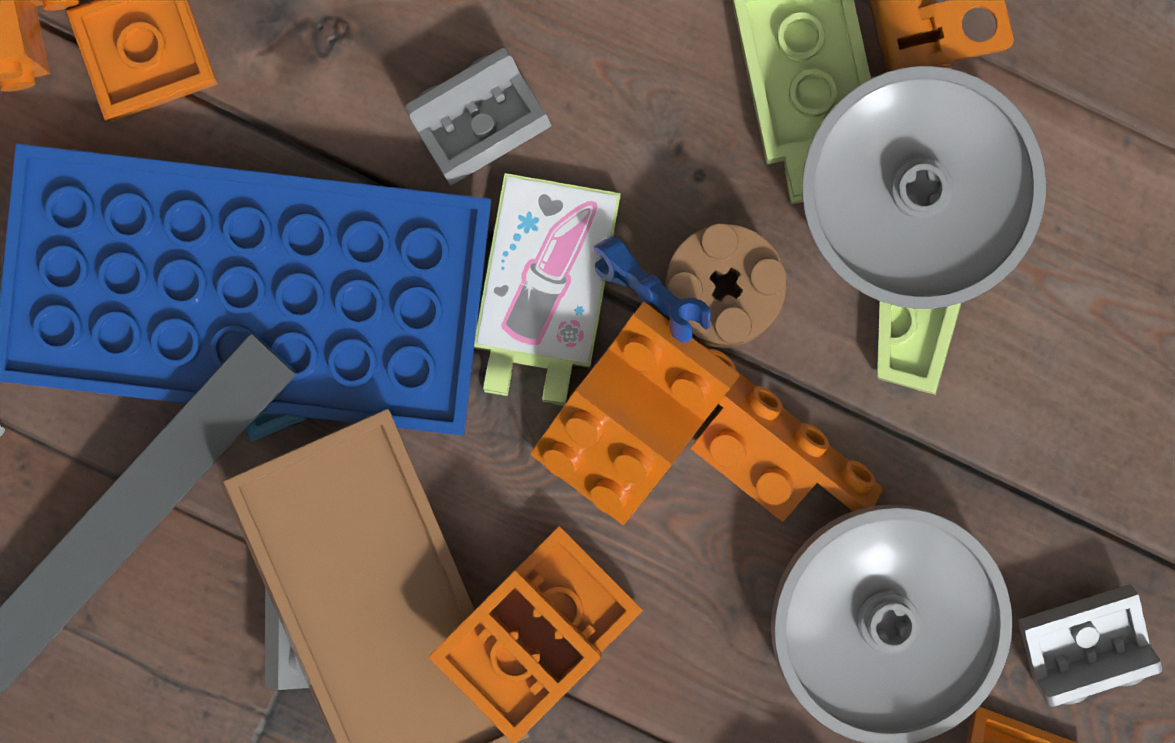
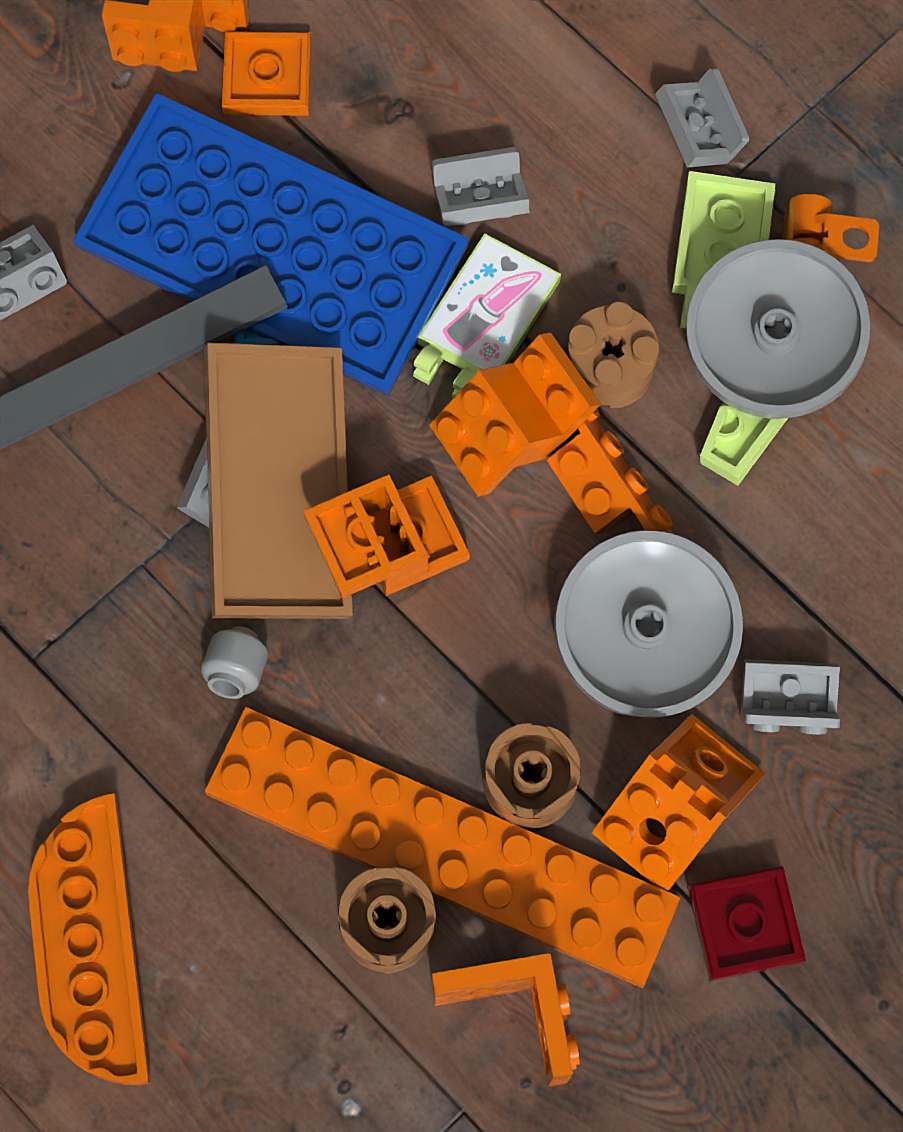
camera: 20 degrees right, 15 degrees down
(622, 268) = (545, 316): blue piece -> none

